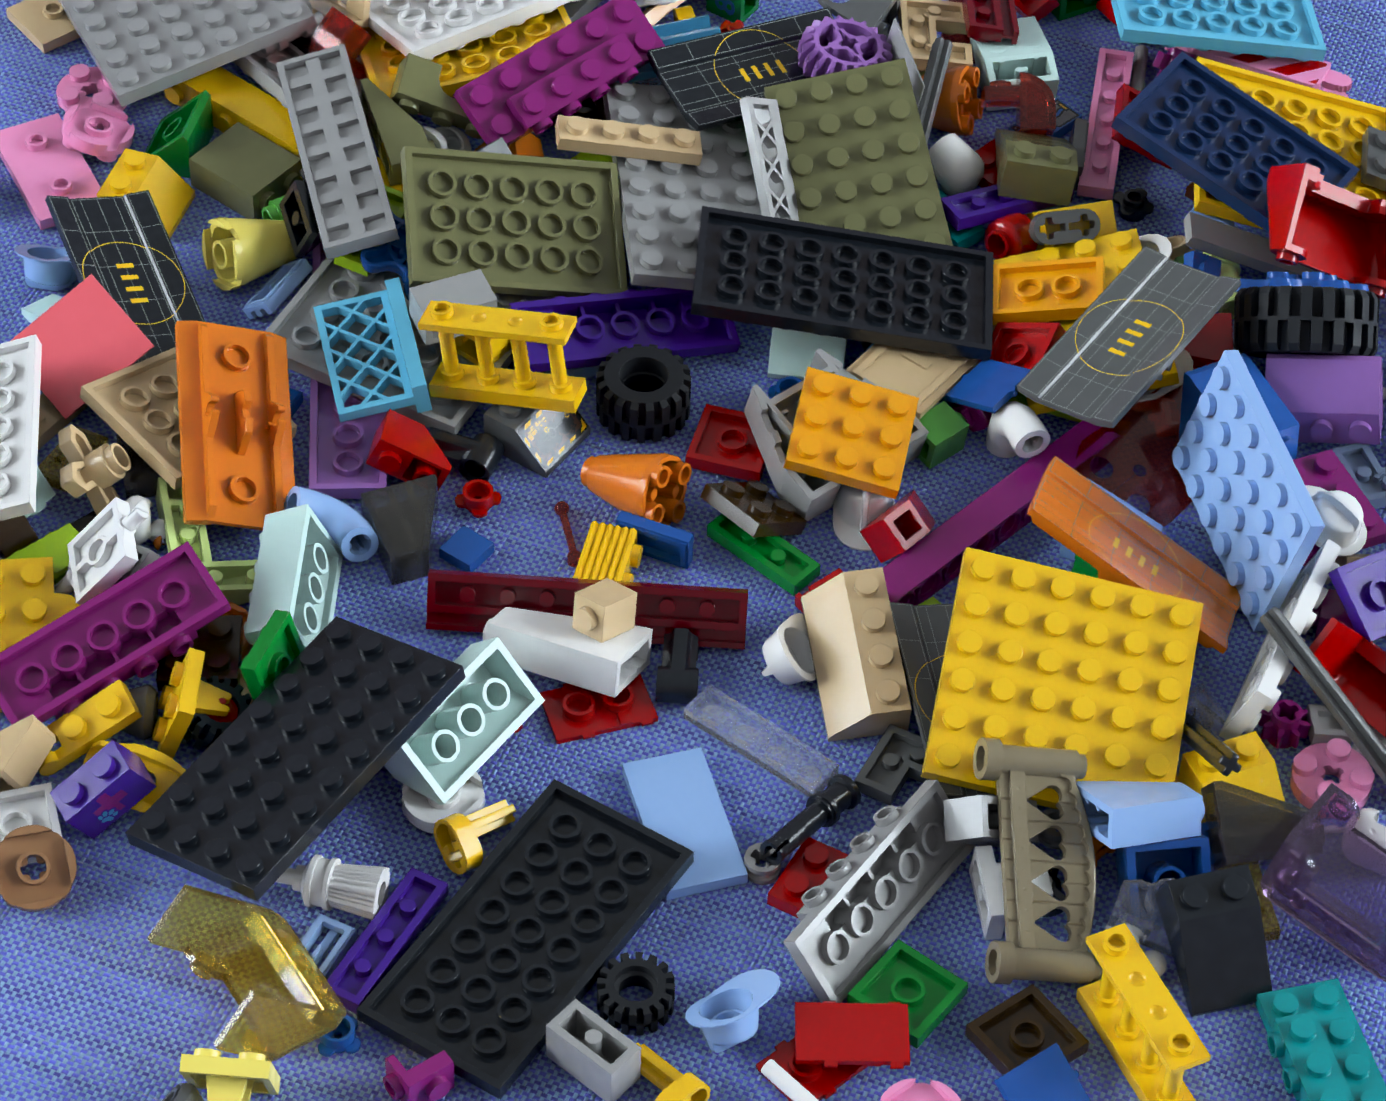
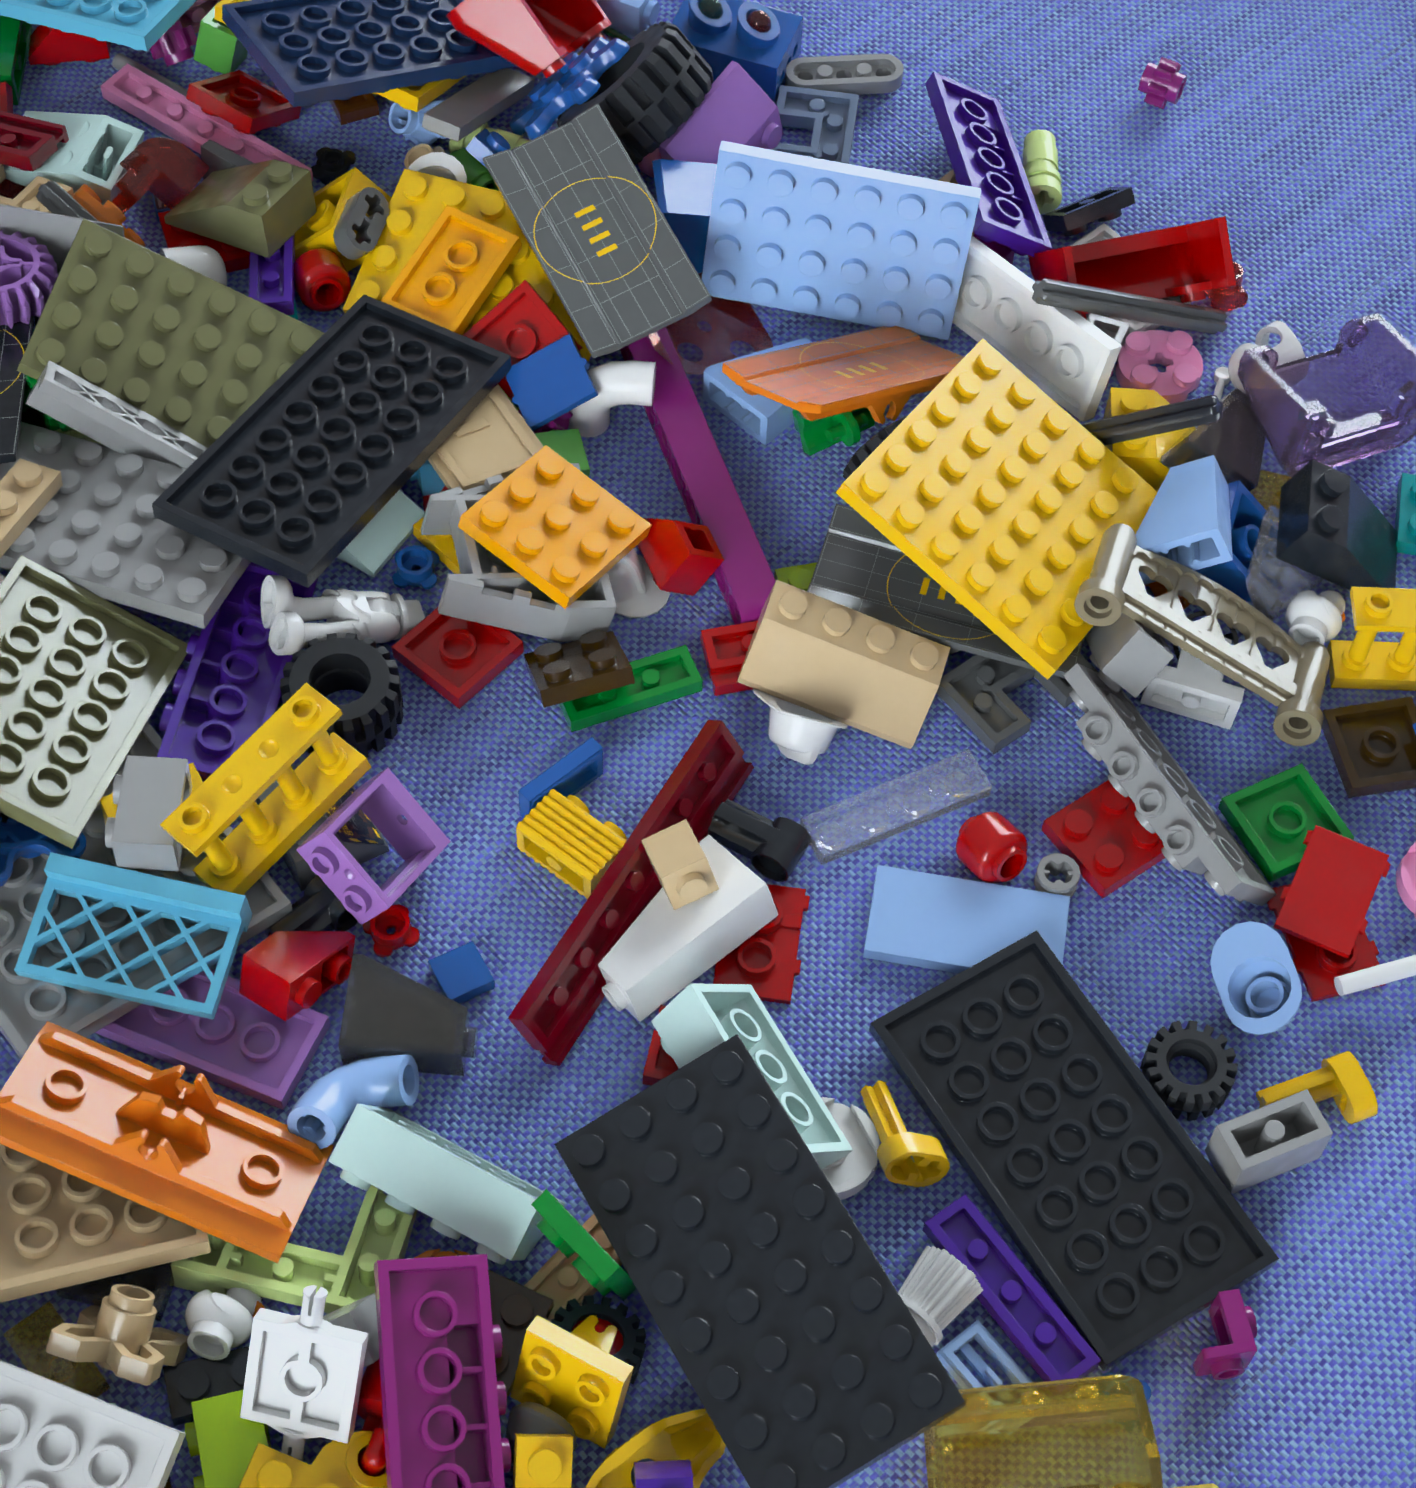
camera: 65 degrees left, 10 degrees up
(557, 453) = (416, 841): none -> medium lavender window
(562, 509) = (530, 871): clear red hinge -> none
(640, 484) = (478, 761): orange cone -> none
(719, 375) = (347, 611): none -> white piece
(757, 808) = (992, 847): none -> red head
(821, 810) = (1024, 792): black pin -> none

